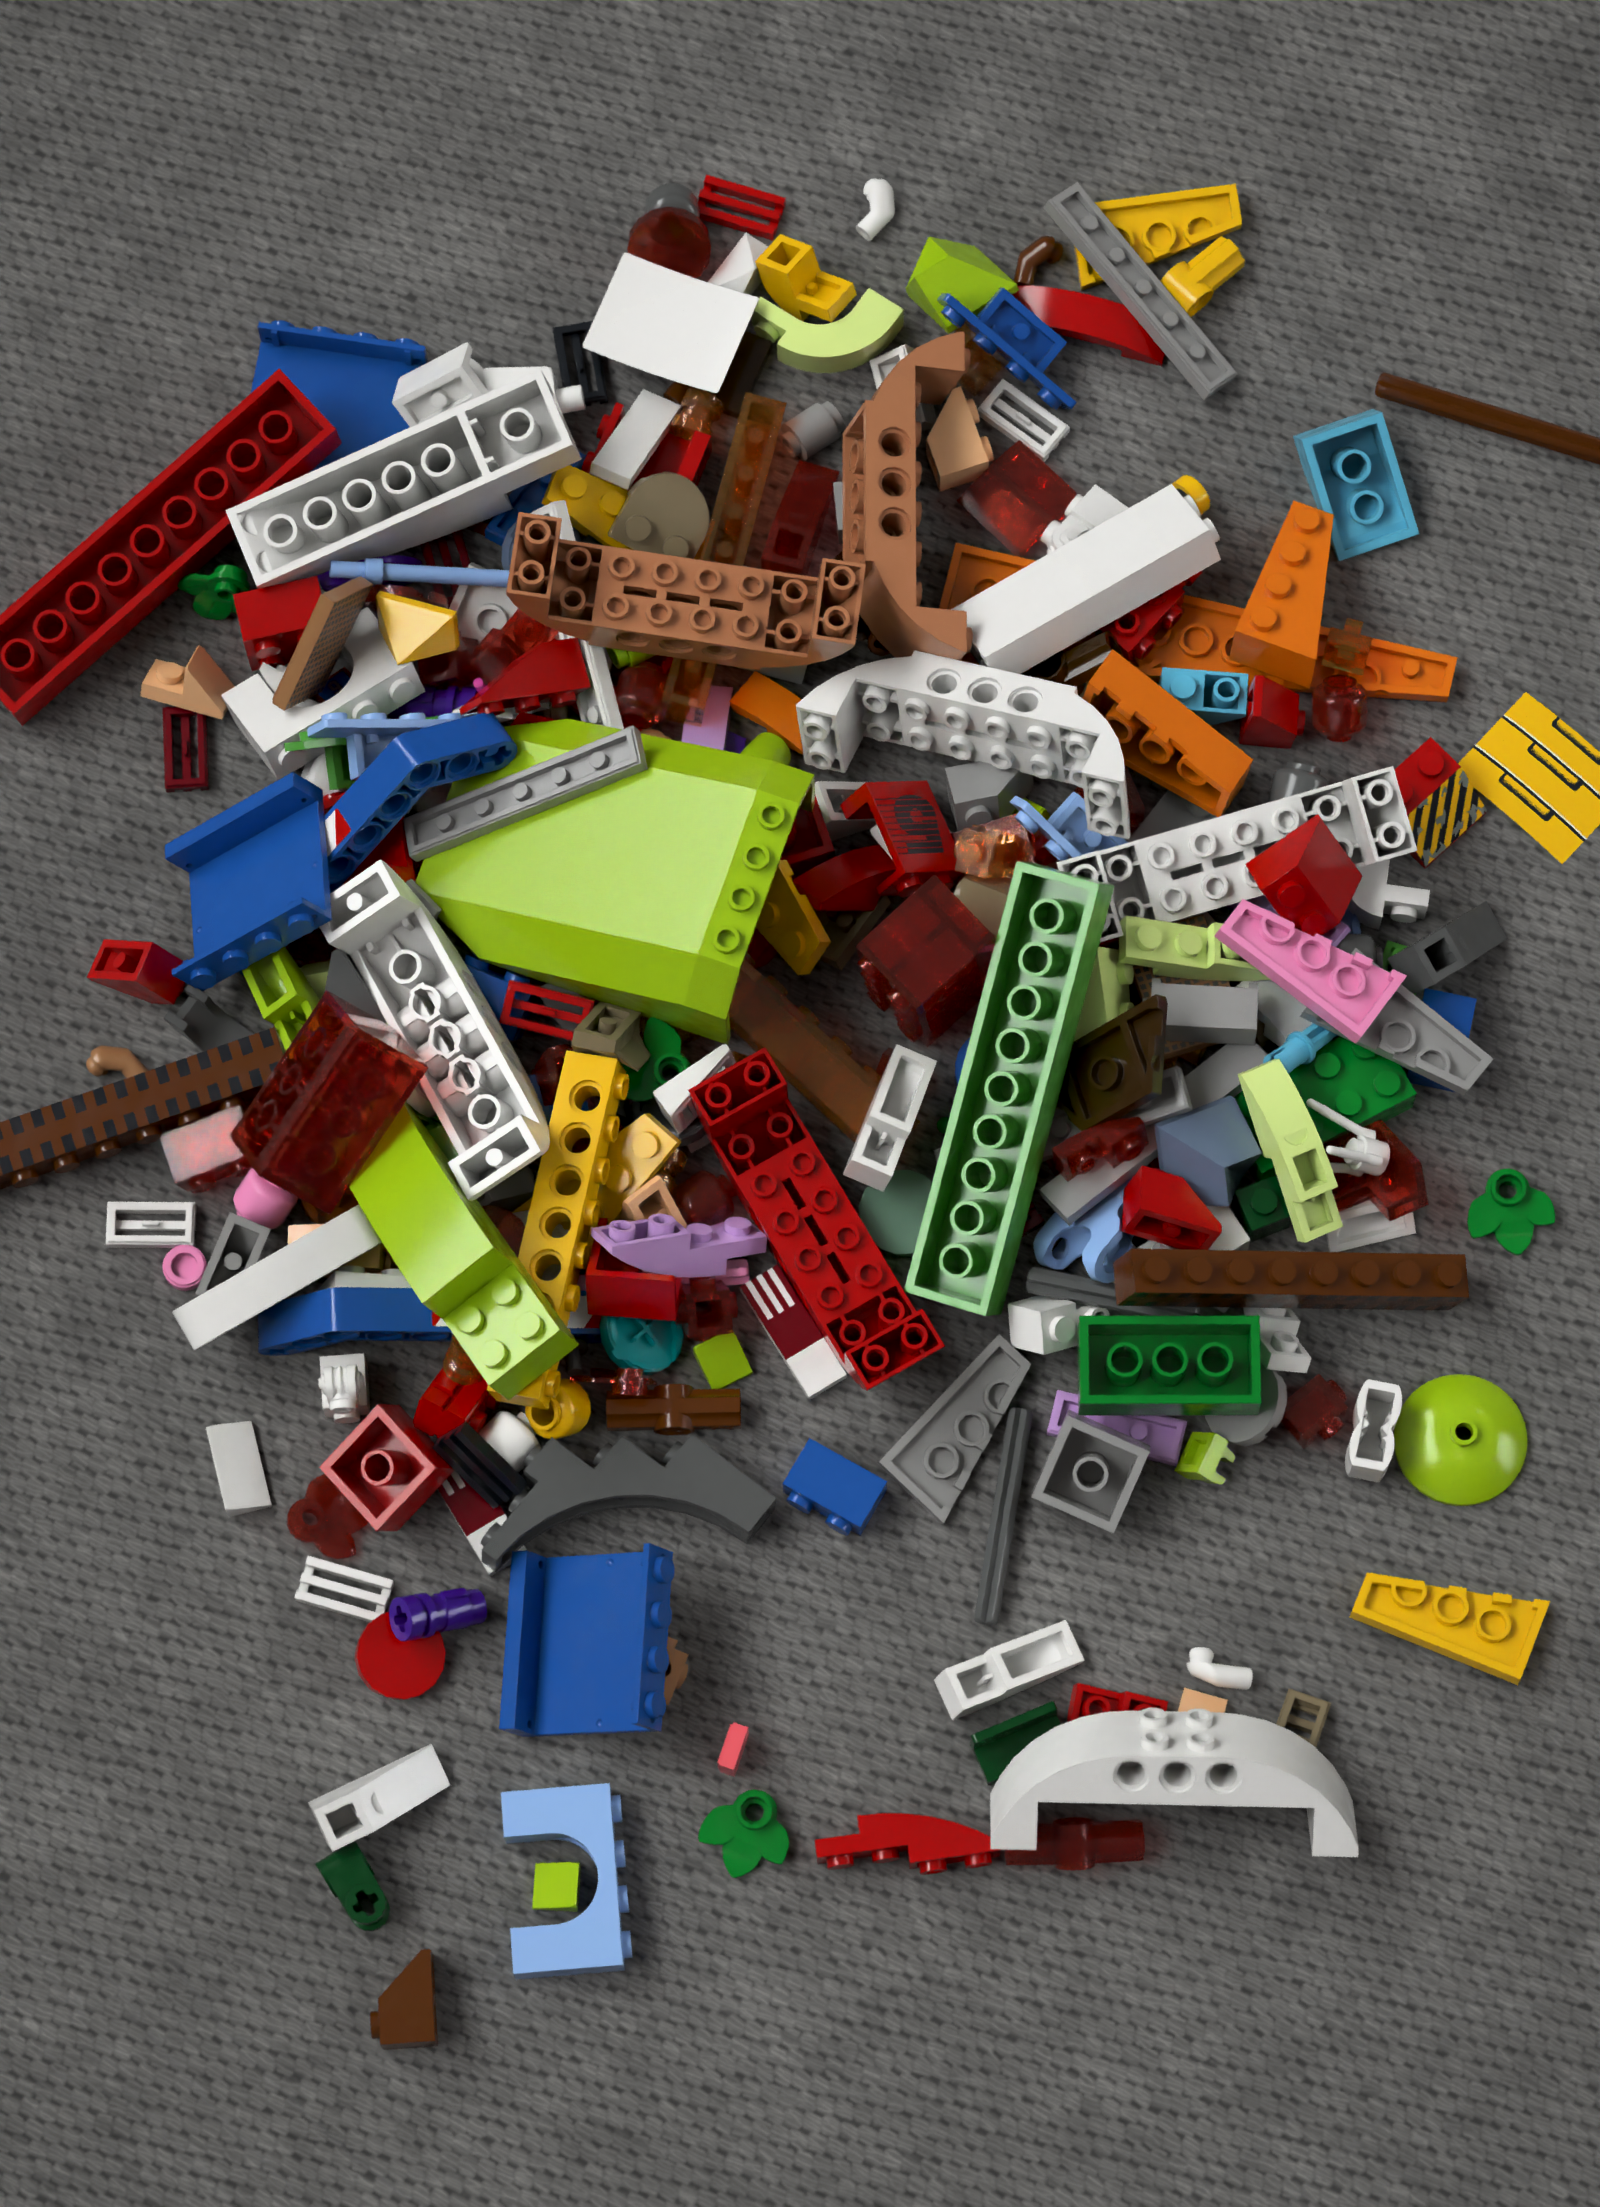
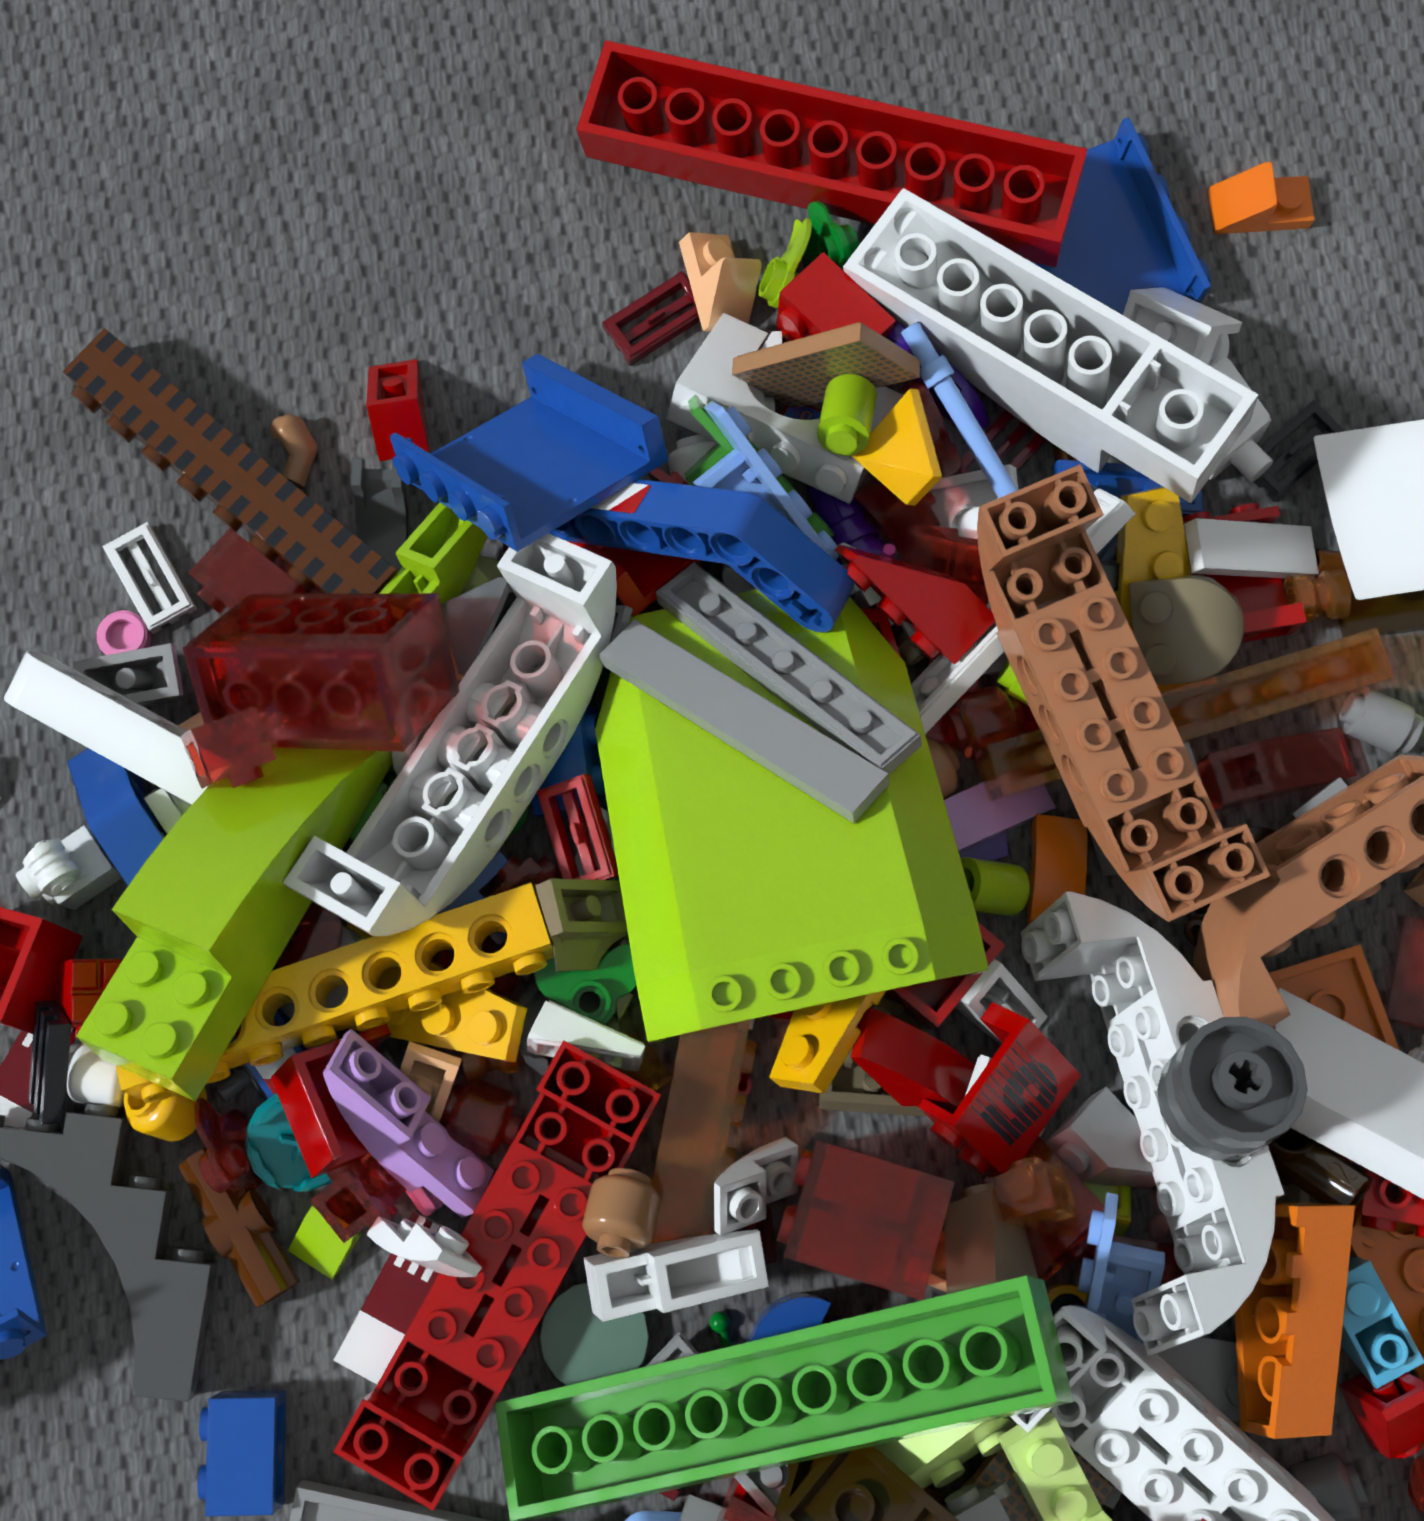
camera: 55 degrees right, 5 degrees up
(215, 634) = (782, 269): none -> lime plate
(353, 1181) = (231, 748): none -> clear red brick
(367, 649) = (847, 414): none -> lime brick
(380, 270) = (1260, 202): none -> orange slope
(543, 840) = (746, 721): none -> light grey tile
(772, 1273) = (434, 1250): none -> white slope
(827, 1124) = (621, 1212): none -> medium nougat head
(864, 1035) = (754, 1182): none -> white slope
(986, 675) = (1232, 1088): none -> dark grey wheel

